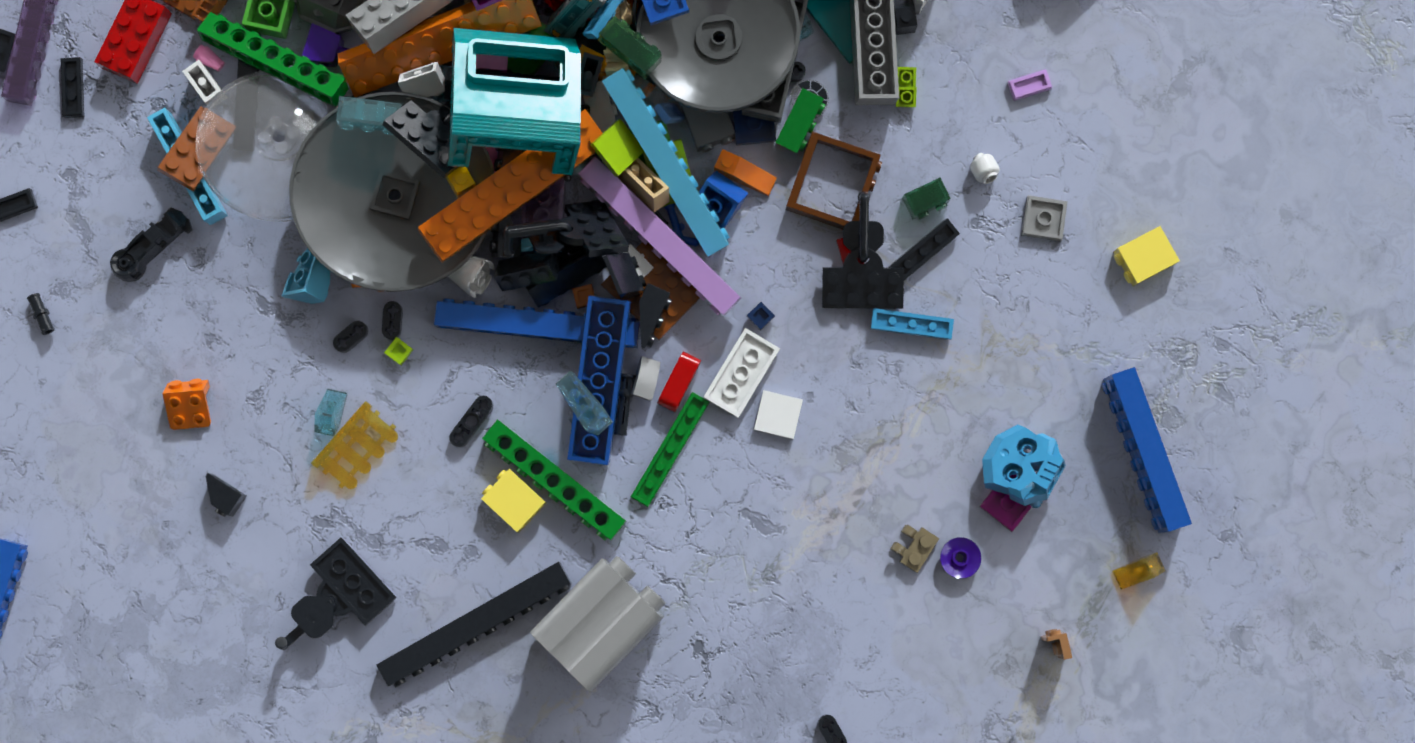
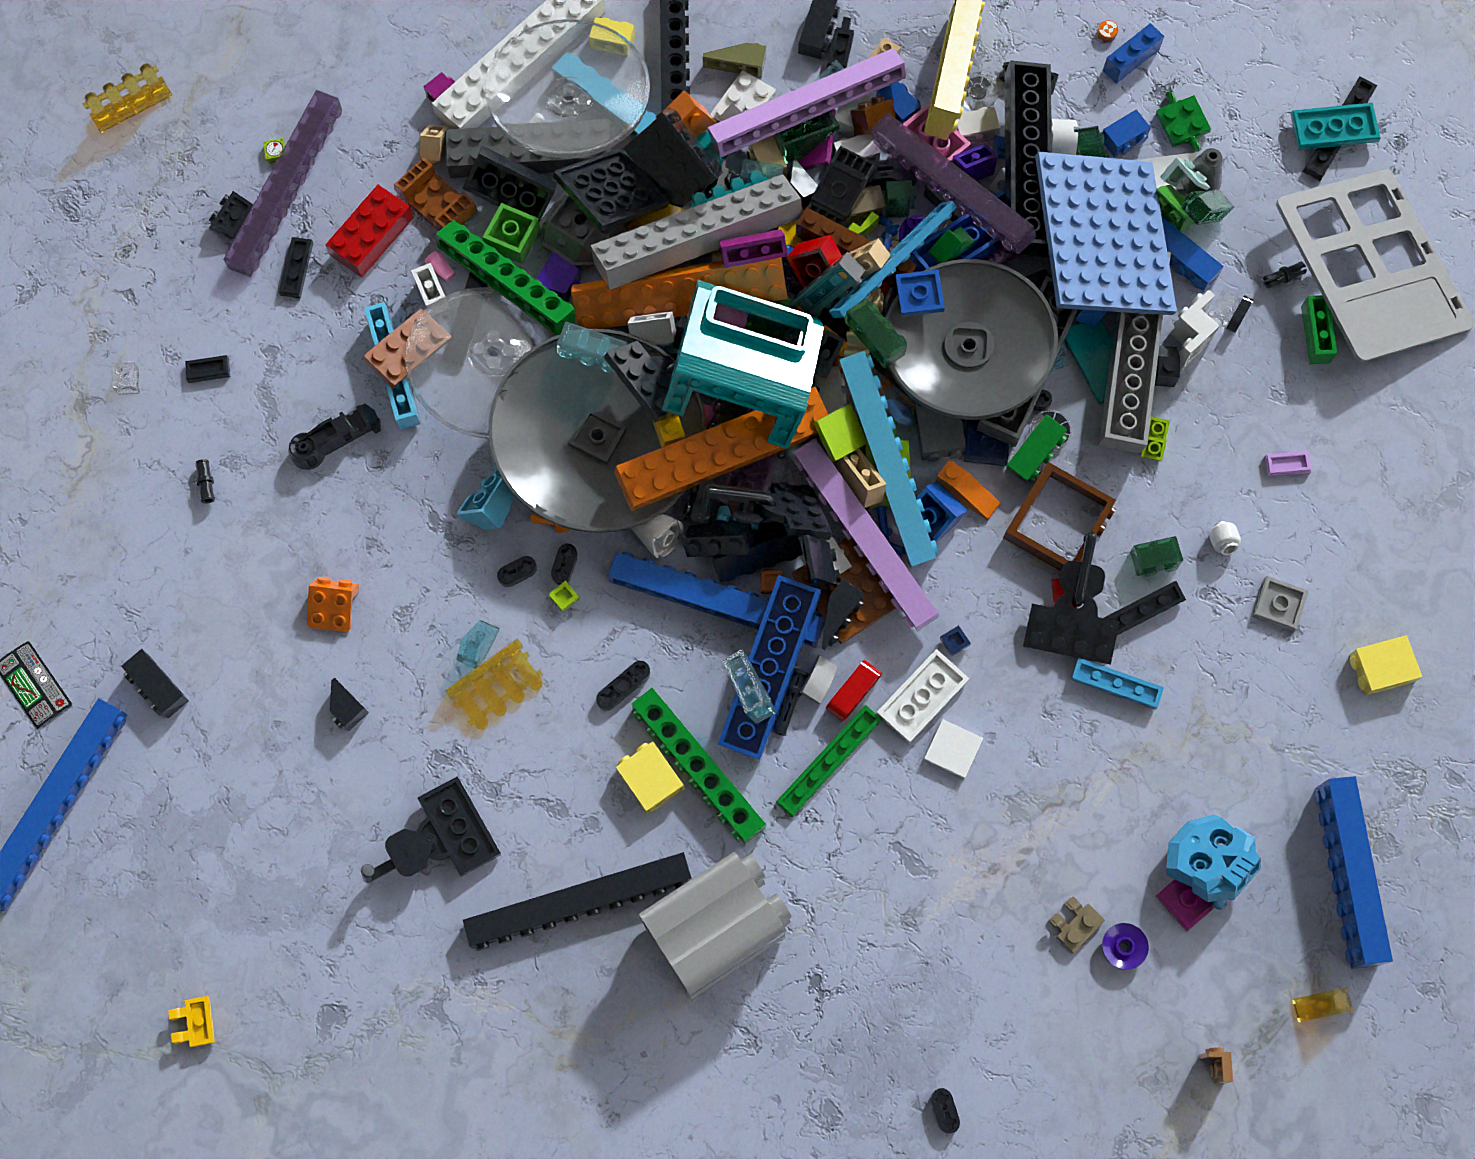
camera: 15 degrees right, 10 degrees down
(44, 513) = (154, 684): none -> black brick

